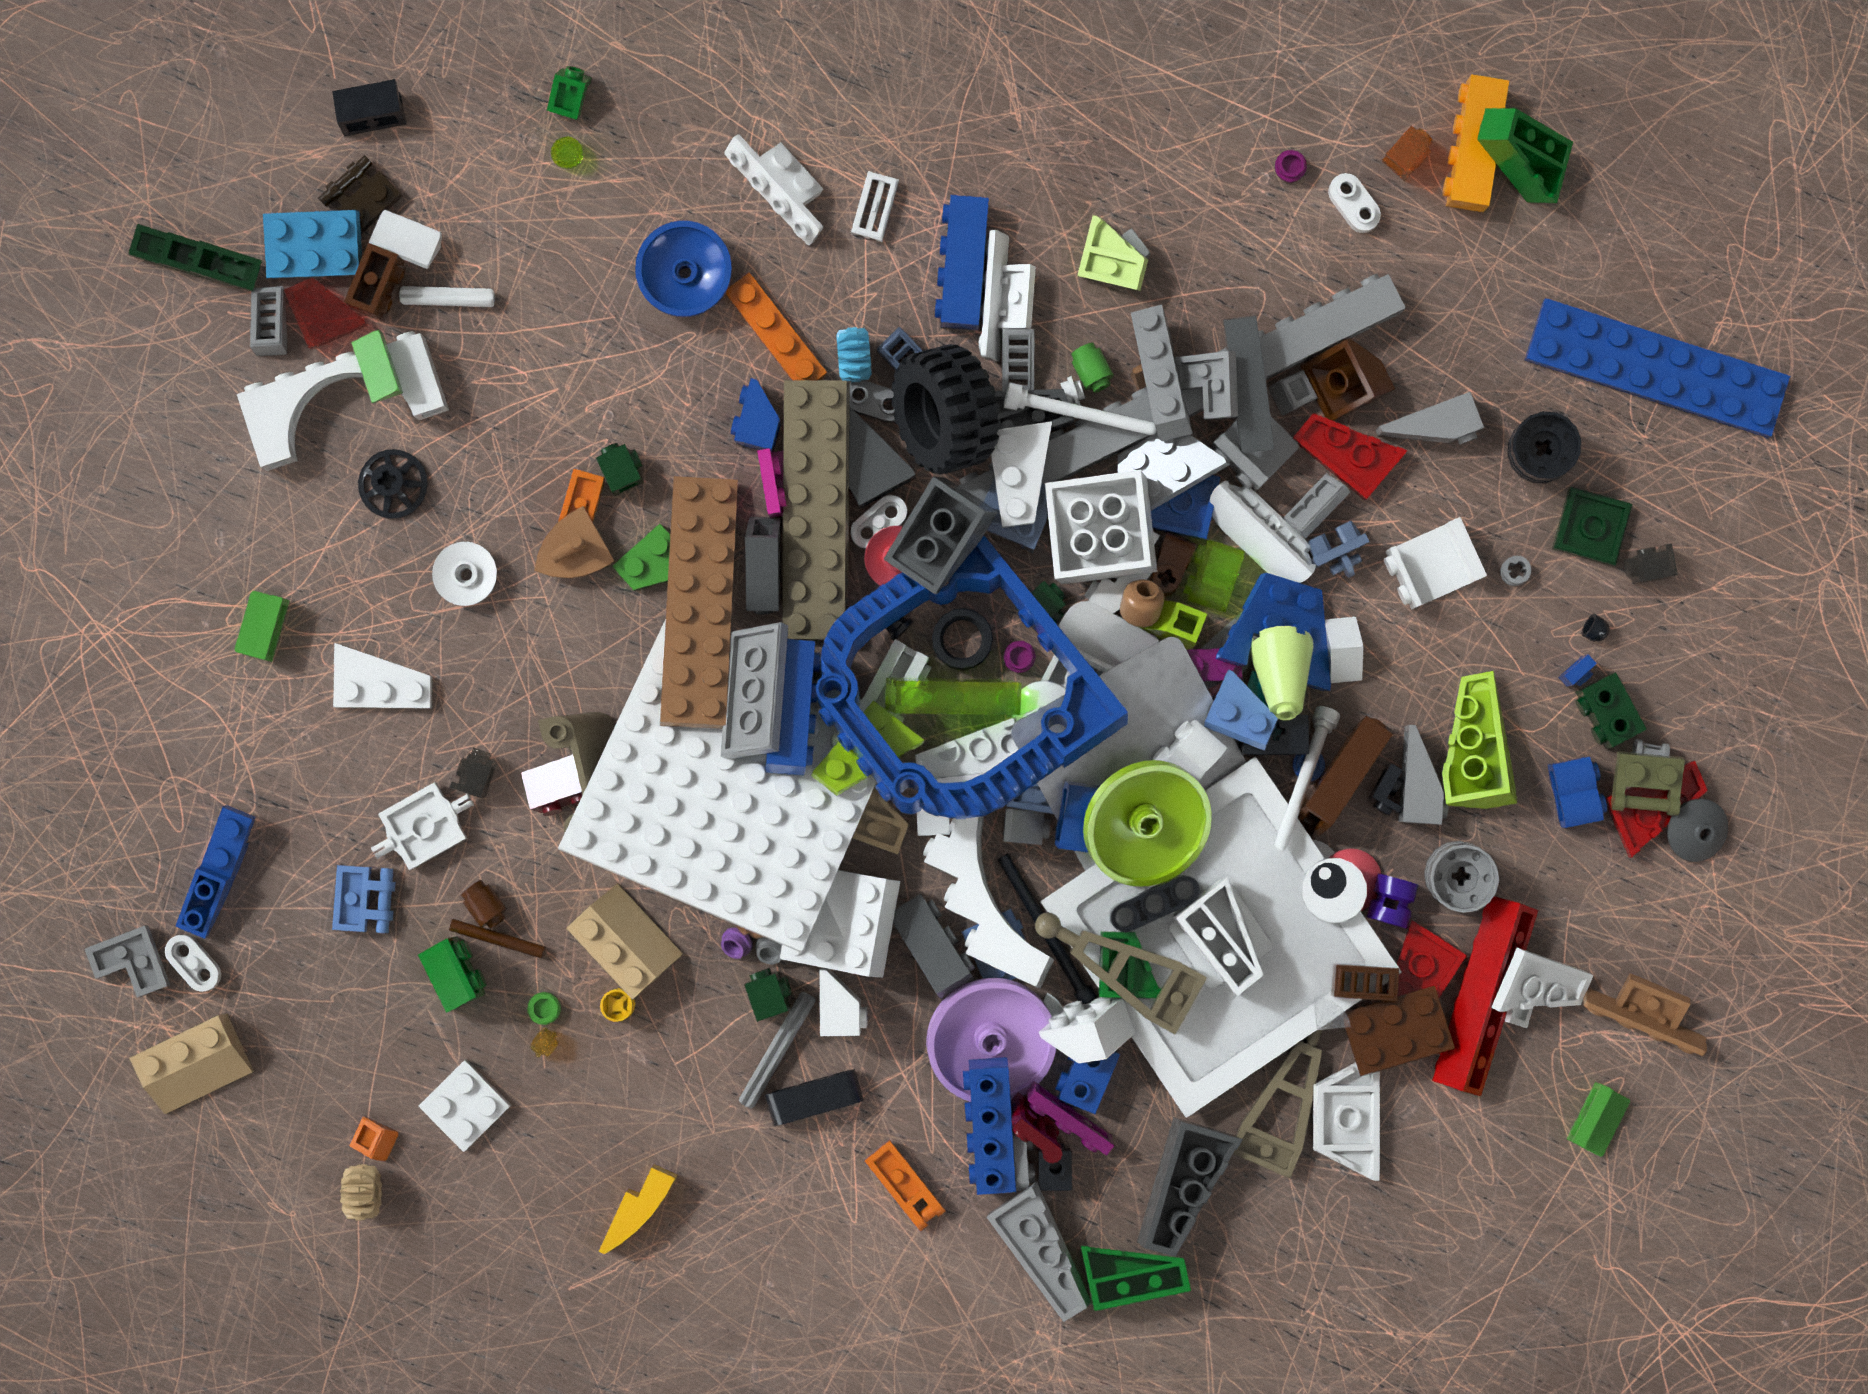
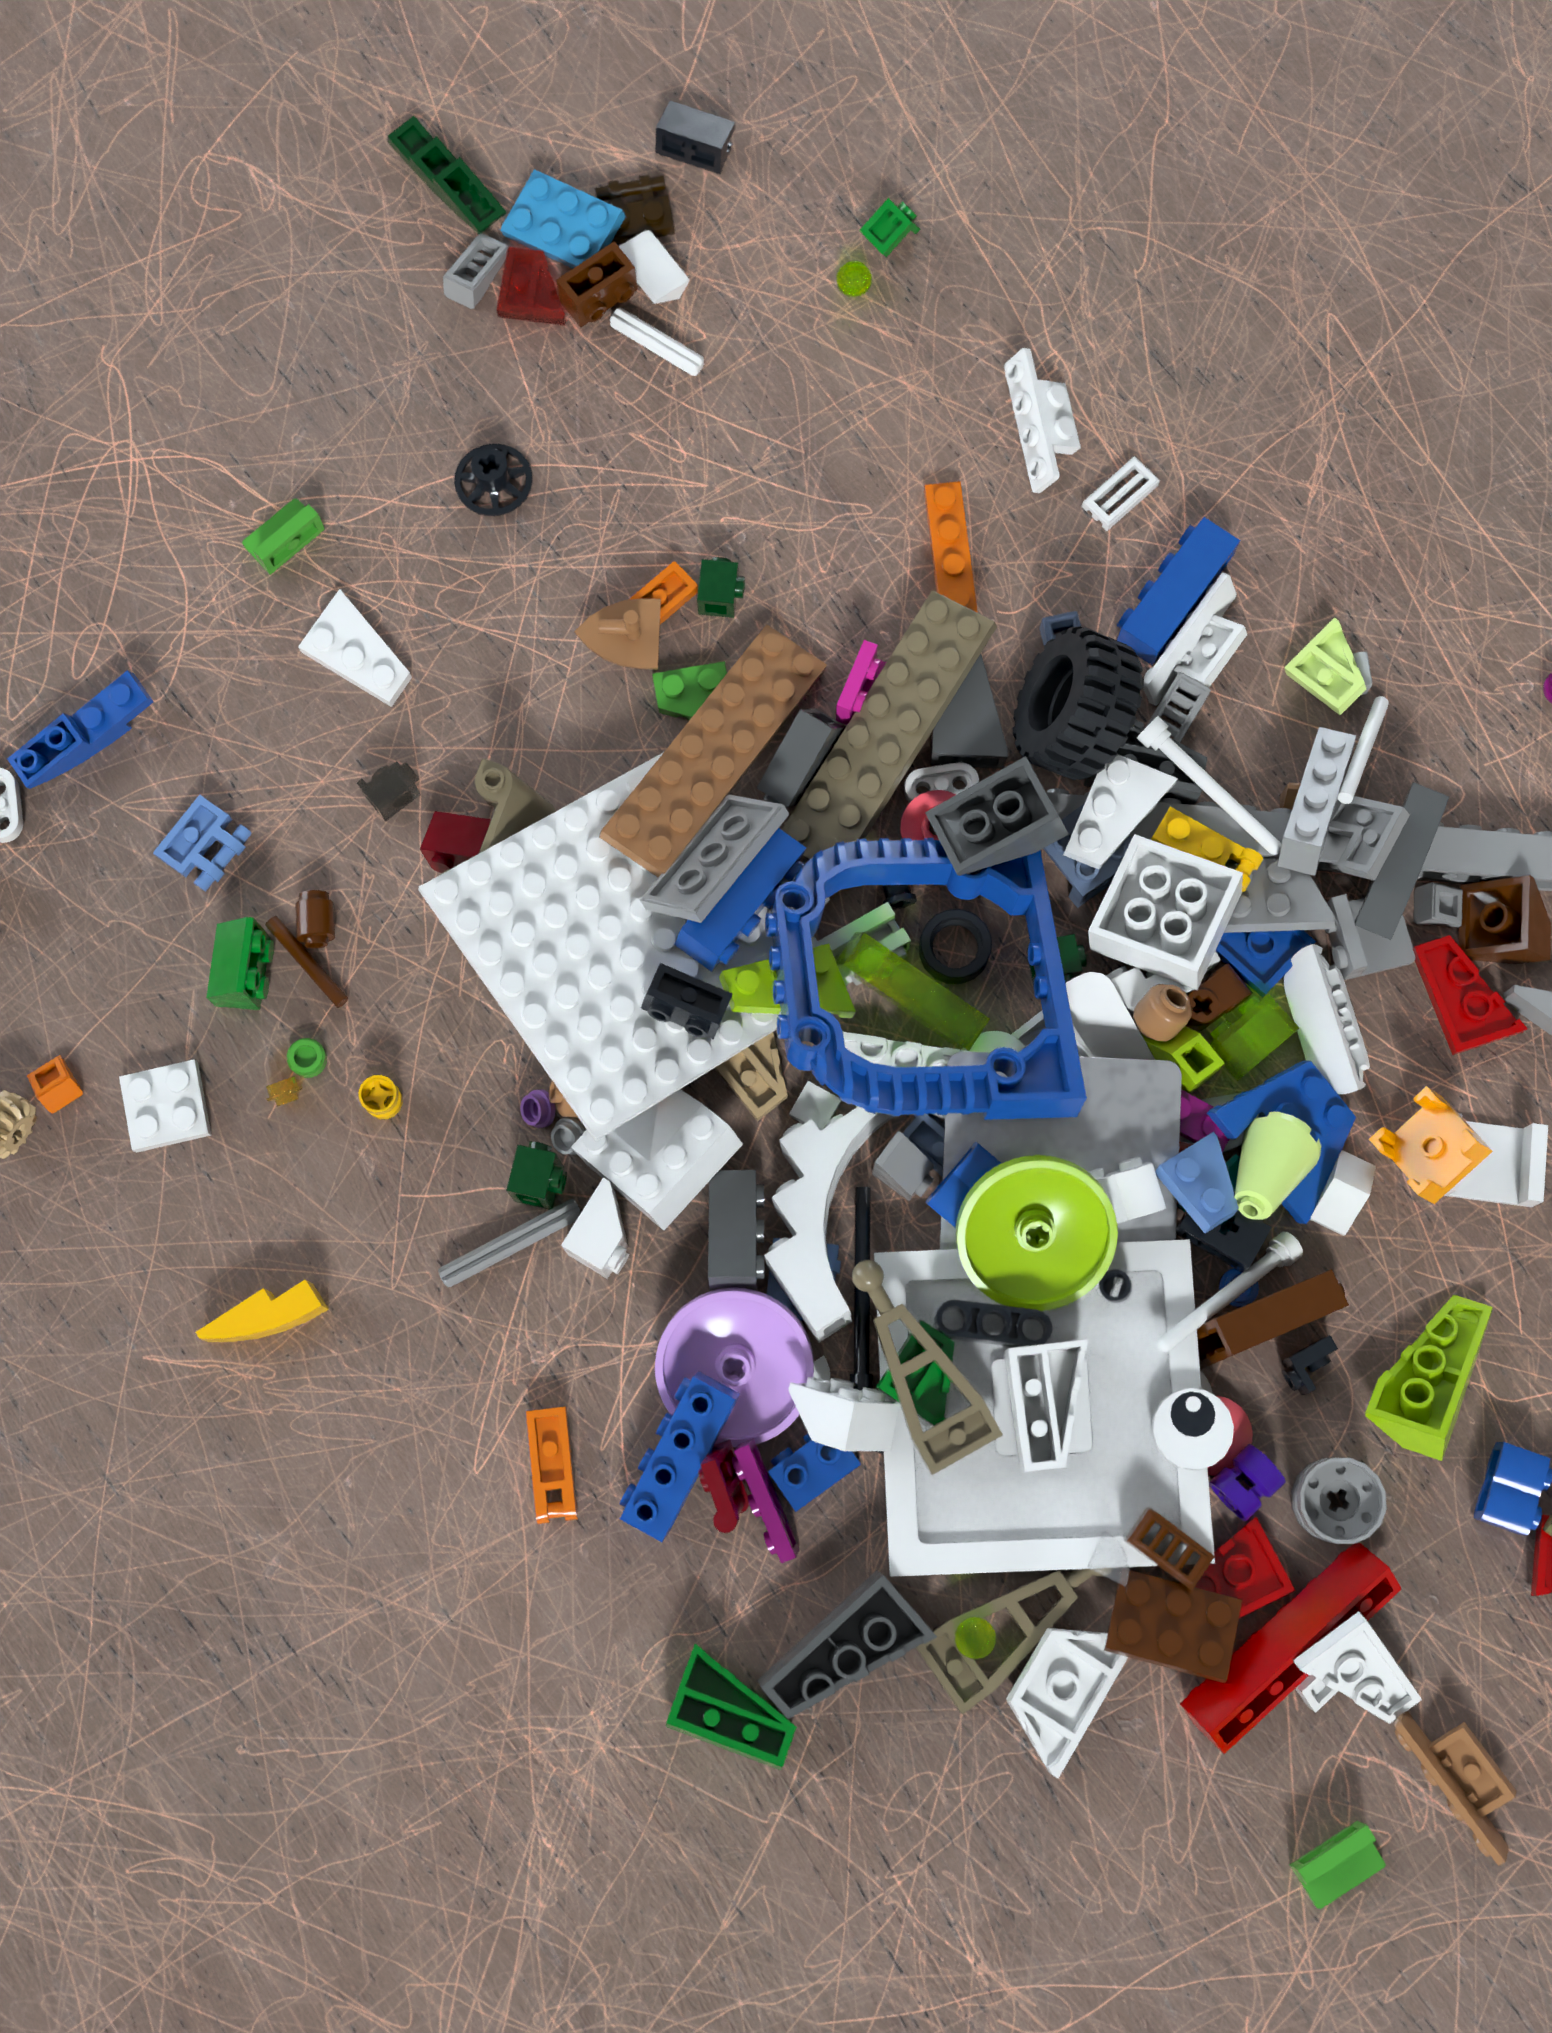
camera: 30 degrees right, 10 degrees down
(275, 408) = (431, 345): white arch -> none
(377, 366) = (549, 356): slope -> none
(422, 826) = (306, 808): white plate -> none
(448, 571) = (501, 582): white dish -> none
(624, 941) = (428, 1039): tan slope -> none
(680, 247) = (900, 419): blue dish -> none
(758, 422) = (880, 618): blue slope -> none
(802, 812) = (686, 1002): none -> black bracket
(814, 1097) = (516, 1313): black beam -> none
(854, 354) = (1016, 610): medium azure gear -> none
(873, 401) = (1006, 669): light grey plate -> none
(1019, 656) = (1002, 999): magenta plate -> none
(1023, 1171) = (683, 1528): light grey plate -> none
(1039, 1247) = (650, 1616): light grey wing -> none
(1055, 1175) = (717, 1549): black brick -> none
(1073, 391) = (1216, 770): white plate -> none
(1092, 367) = (1246, 762): bright green brick -> none
(1100, 458) = (1197, 839): none -> yellow plate
(1172, 310) = (1363, 750): none -> white bar
(1217, 824) = (1108, 1282): none -> black hinge
(1268, 1123) = (975, 1638): none -> clear neon green plate
(1316, 505) = (1400, 1028): light grey plate -> none
(1350, 539) = (1380, 1083): sand blue hips -> none
(1388, 583) = (1433, 1147): none -> light orange panel
(1420, 789) = (1347, 1380): light grey slope -> none

